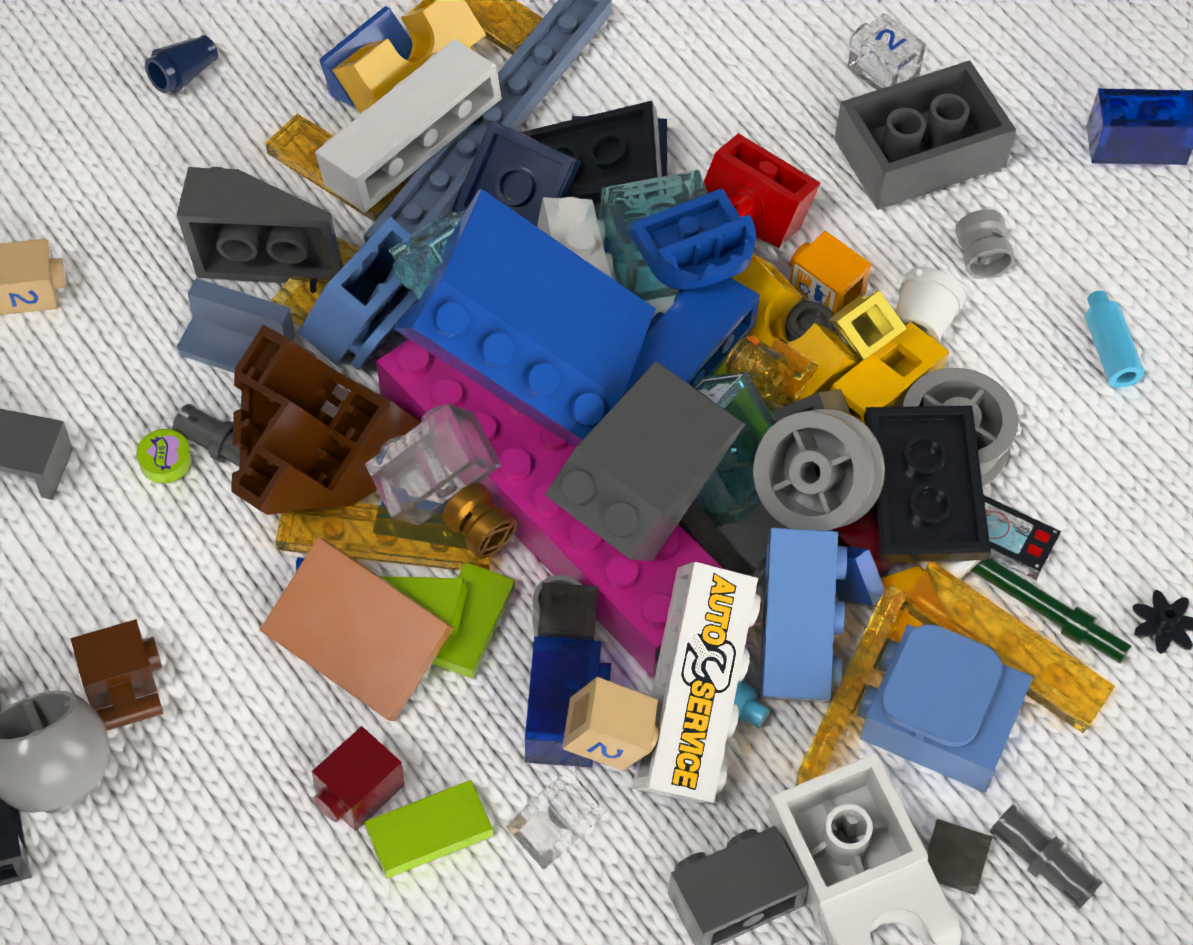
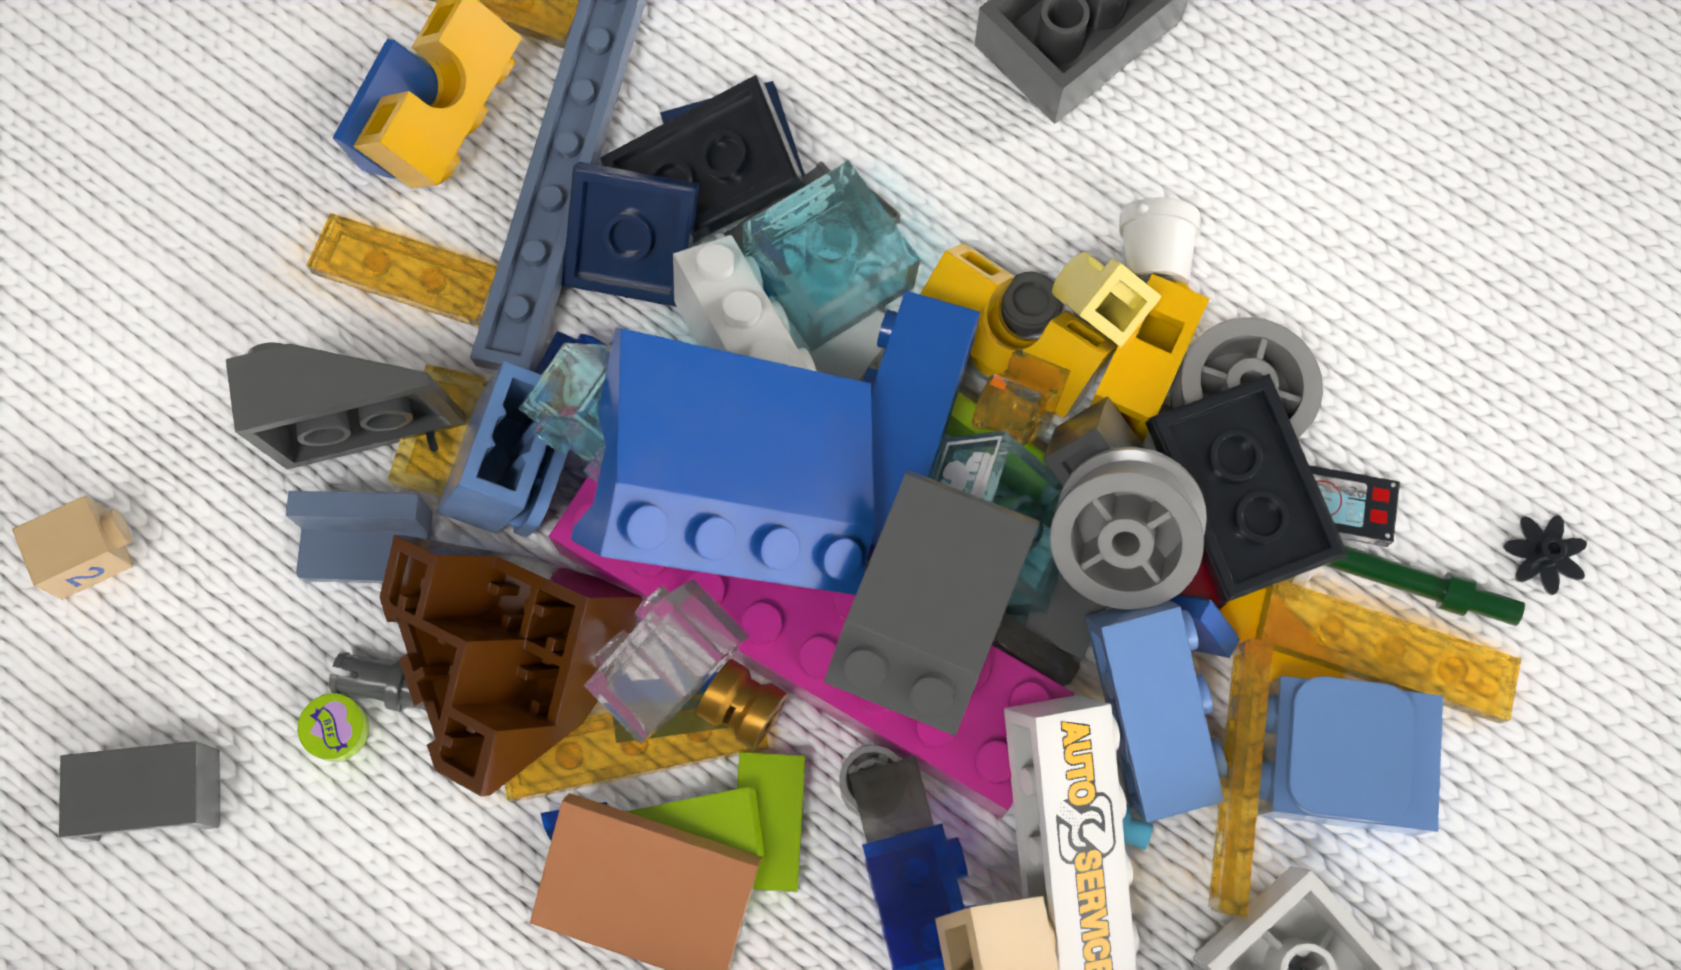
camera: 15 degrees left, 15 degrees up
(179, 63) = (162, 188): dark blue cone -> none
(408, 125) = (473, 195): white brick -> none
(696, 242) = (886, 270): blue slope -> none
(763, 187) = (916, 154): red brick -> none
(829, 272) = (1030, 232): light orange brick -> none
(958, 855) = (1415, 930): clear smoke tile -> none
(985, 243) = (1194, 134): light grey wheel -> none
(1045, 856) = (1516, 903): dark grey pin -> none
(1113, 341) = (1376, 212): medium azure cylinder -> none

